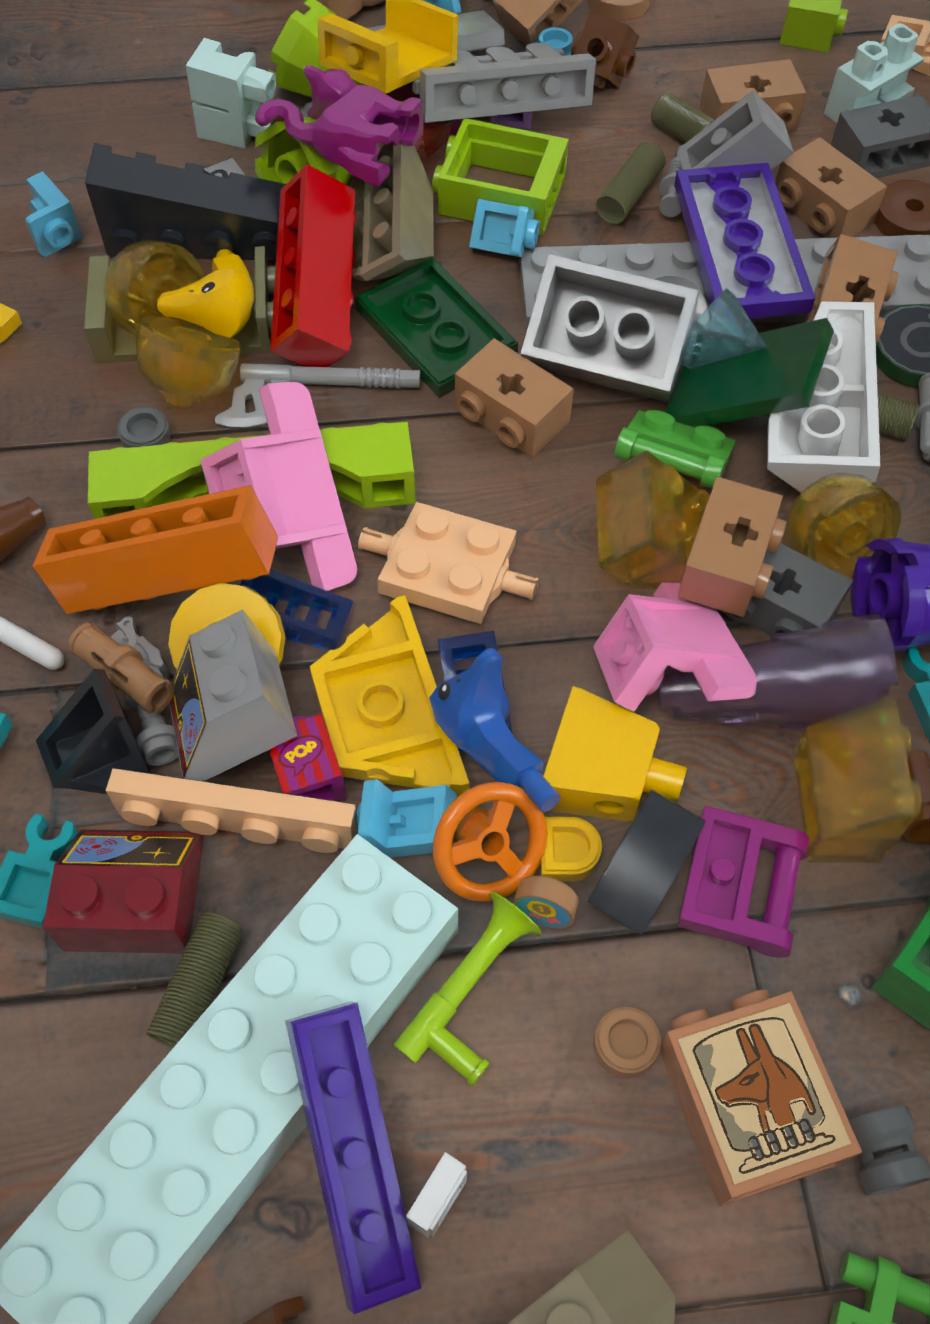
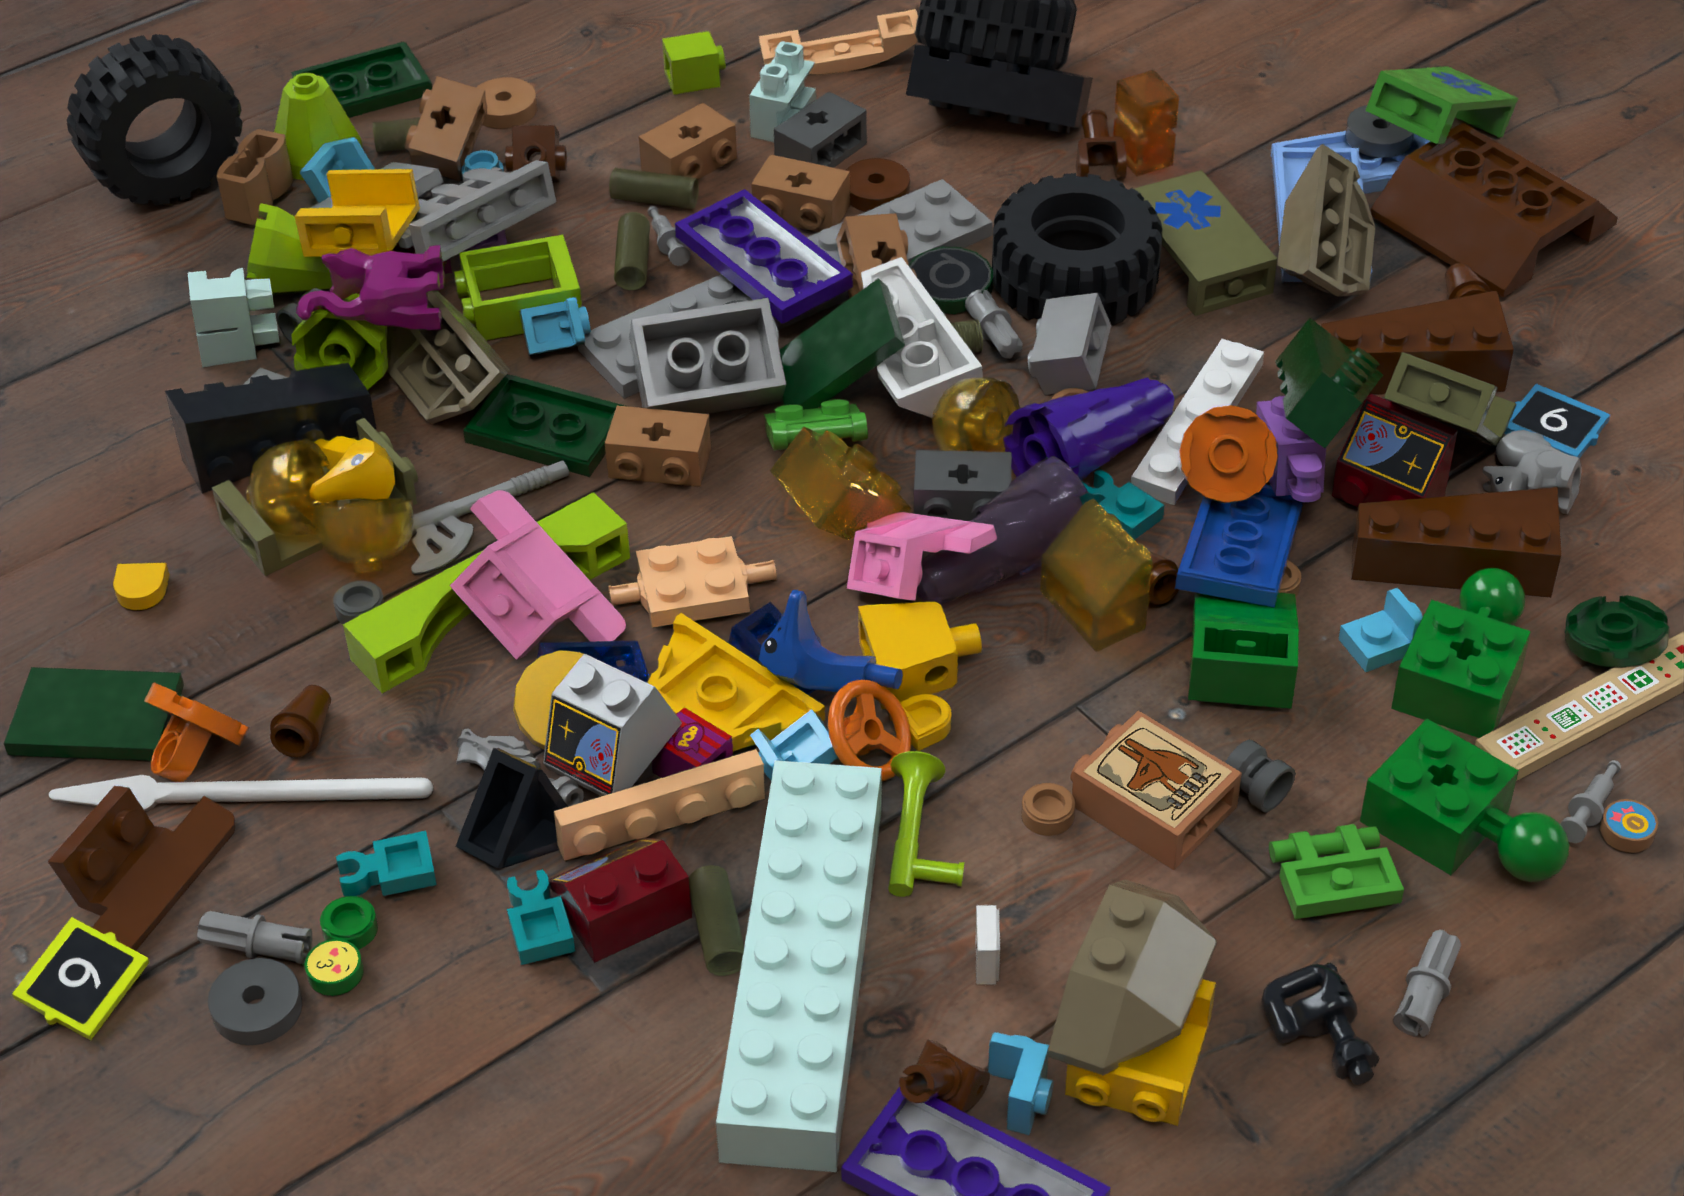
camera: 30 degrees left, 15 degrees down
(53, 218) = (131, 473): medium azure bracket -> none
(123, 667) = (464, 751): medium nougat pin -> none
(157, 550) = (468, 659): orange brick -> none
(313, 270) = (423, 417): red brick -> none
(353, 1156) = (915, 936): dark purple tile -> none
(547, 901) = (940, 743): medium nougat tile -> none
(646, 861) = (987, 694): black slope -> none
(721, 333) = (803, 324): clear light blue slope -> none
(723, 879) = (1047, 683): magenta plate -> none
(731, 547) = (913, 462): medium nougat brick -> none
(740, 136) = (707, 179): light grey brick -> none

